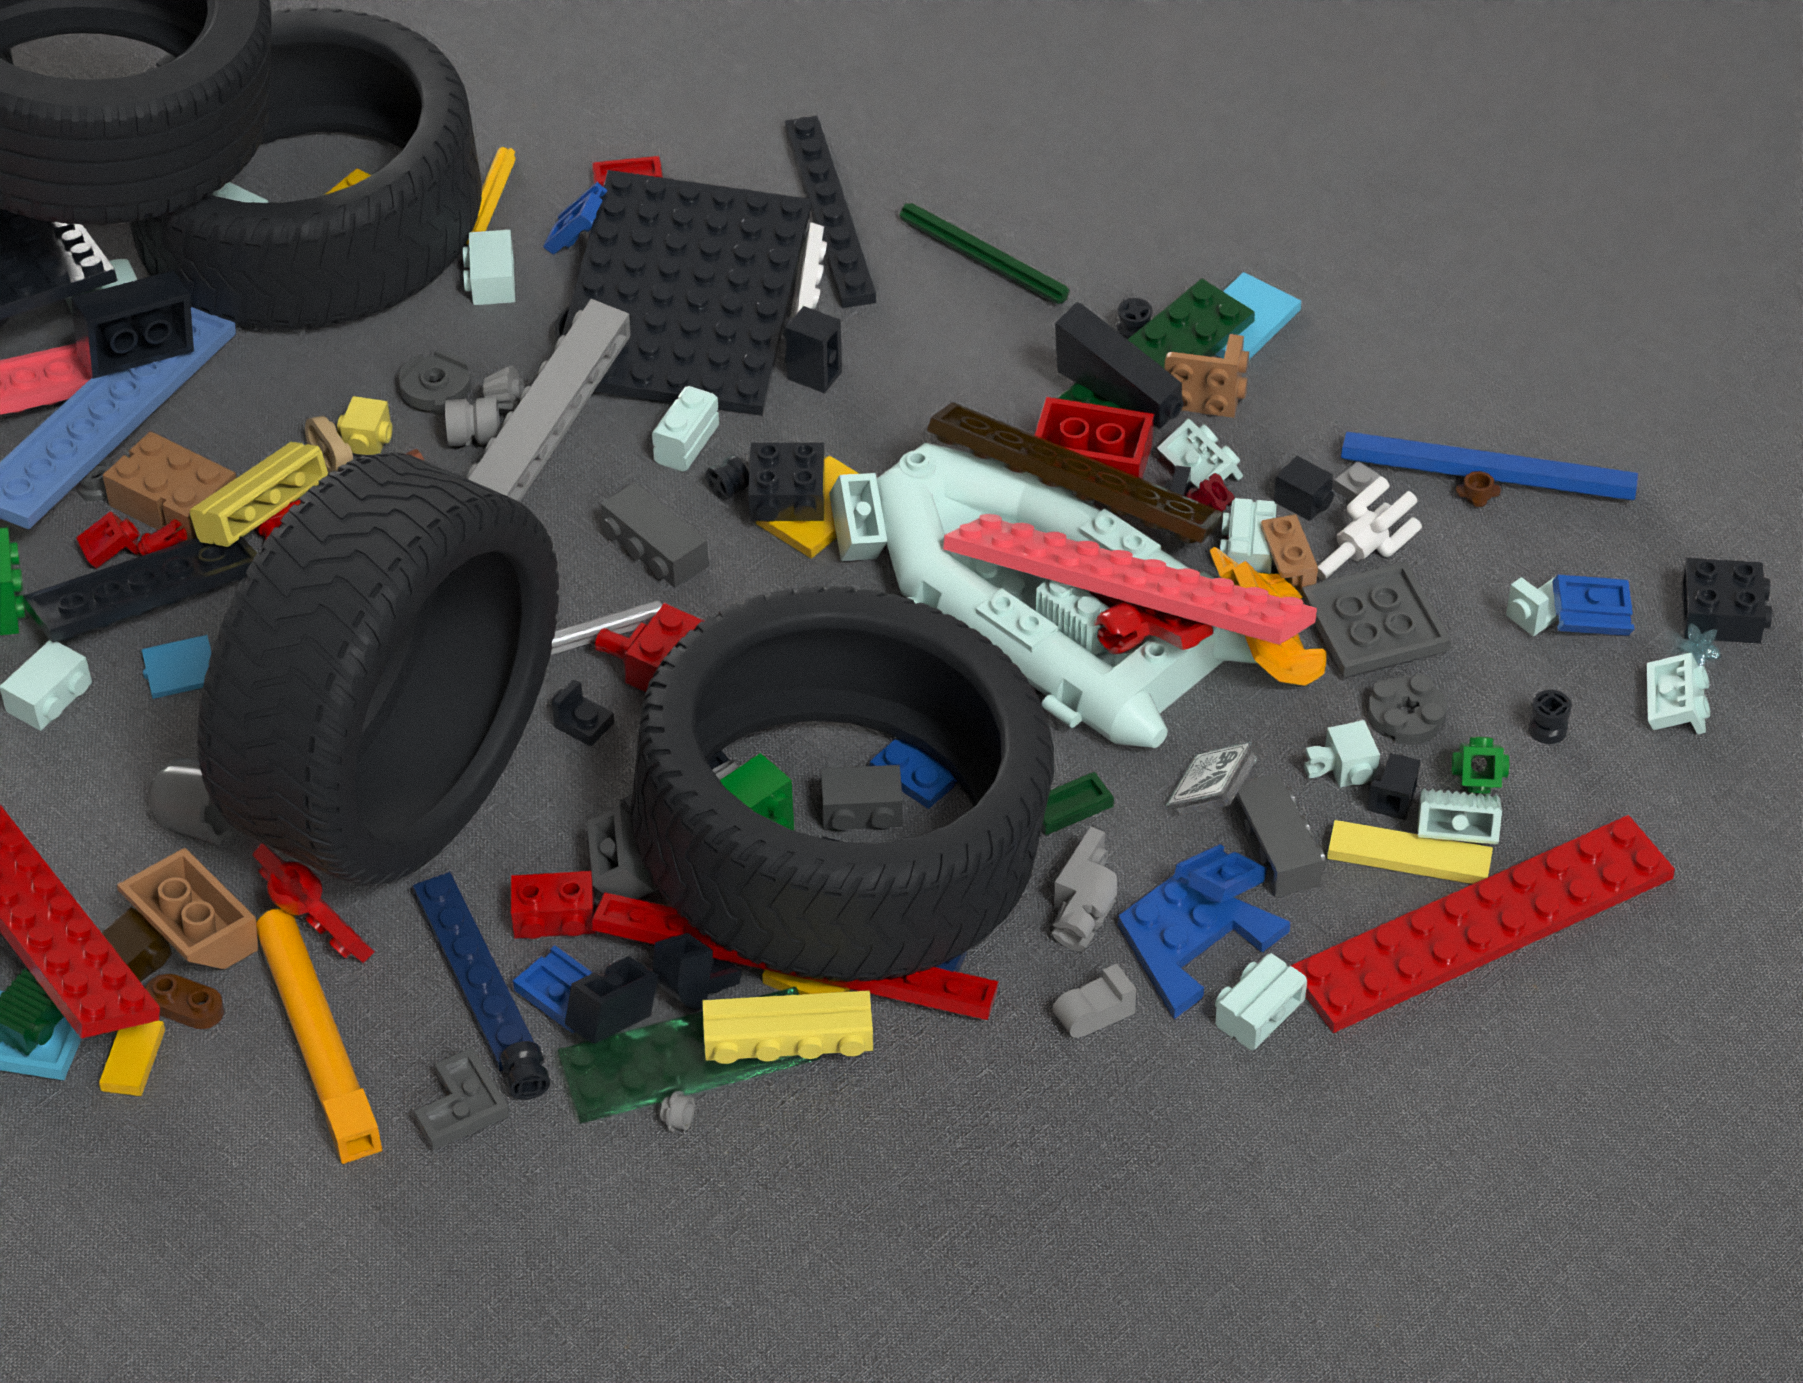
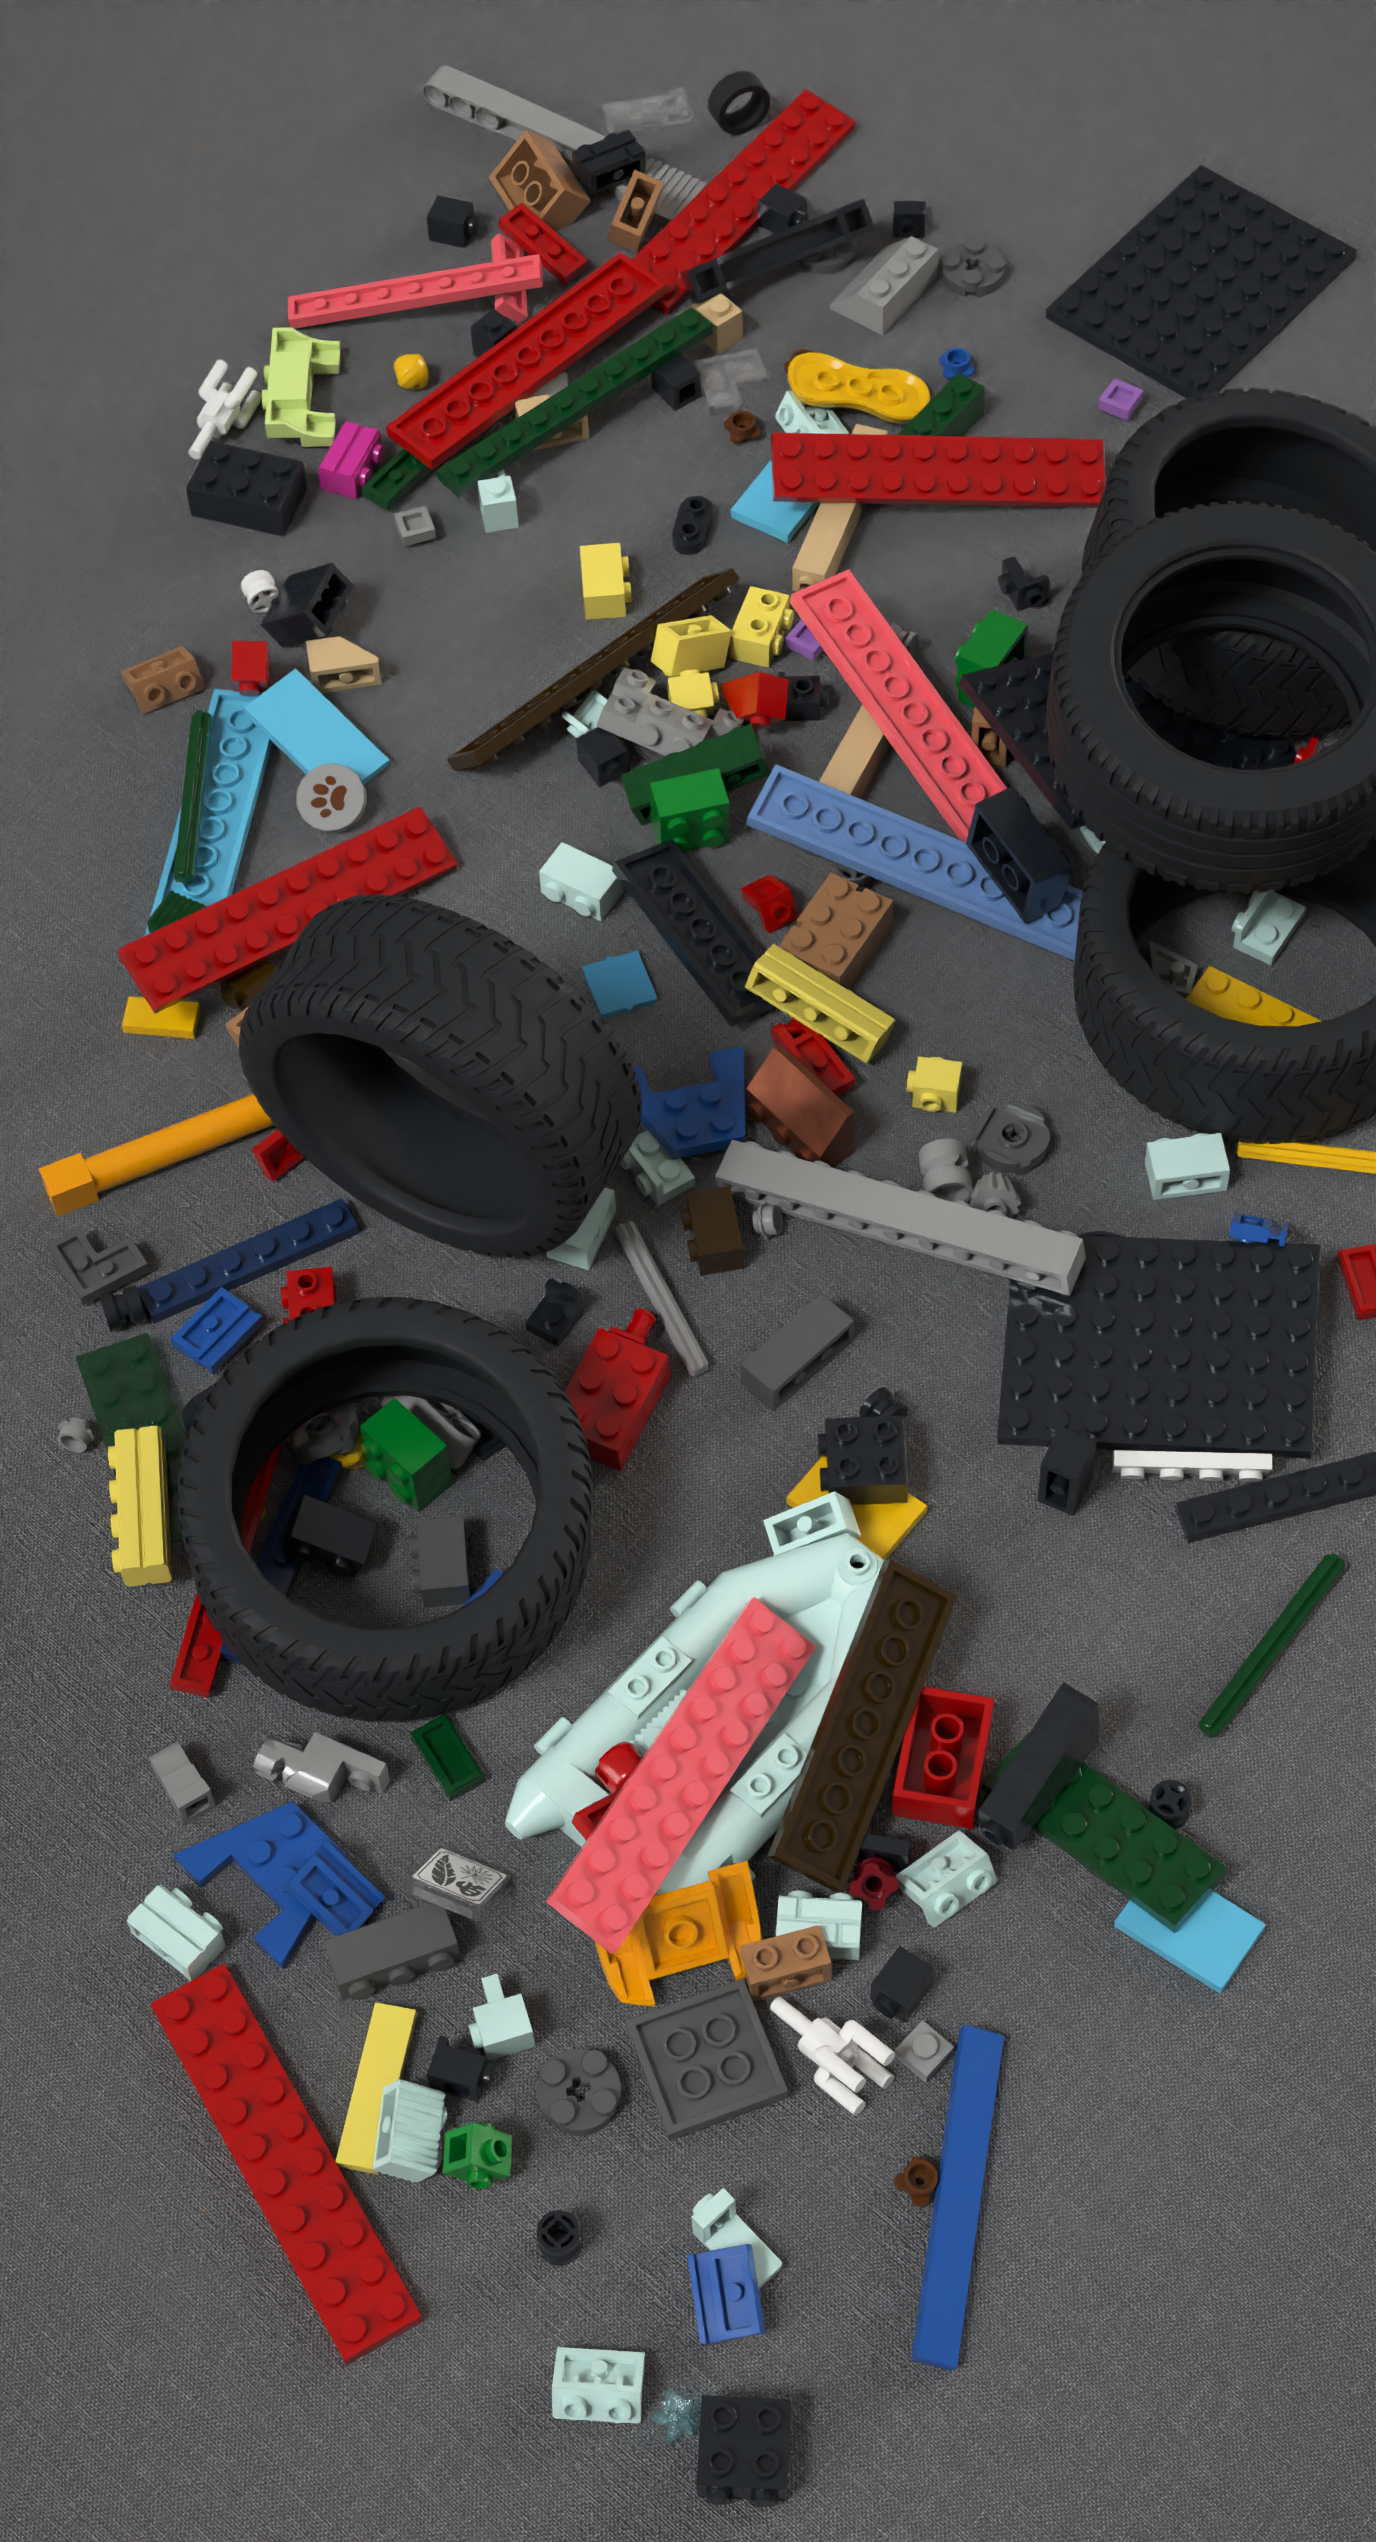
camera: 90 degrees right, 10 degrees up
(162, 538) = (765, 935): red pin -> none
(182, 998) = (219, 1043): reddish brown plate -> none
(324, 434) = (897, 1061): tan plate -> none
(612, 1002) = (177, 1362): black brick -> none
(685, 428) = (950, 1365): light aqua brick -> none
(1212, 383) = (1055, 1897): medium nougat bracket -> none

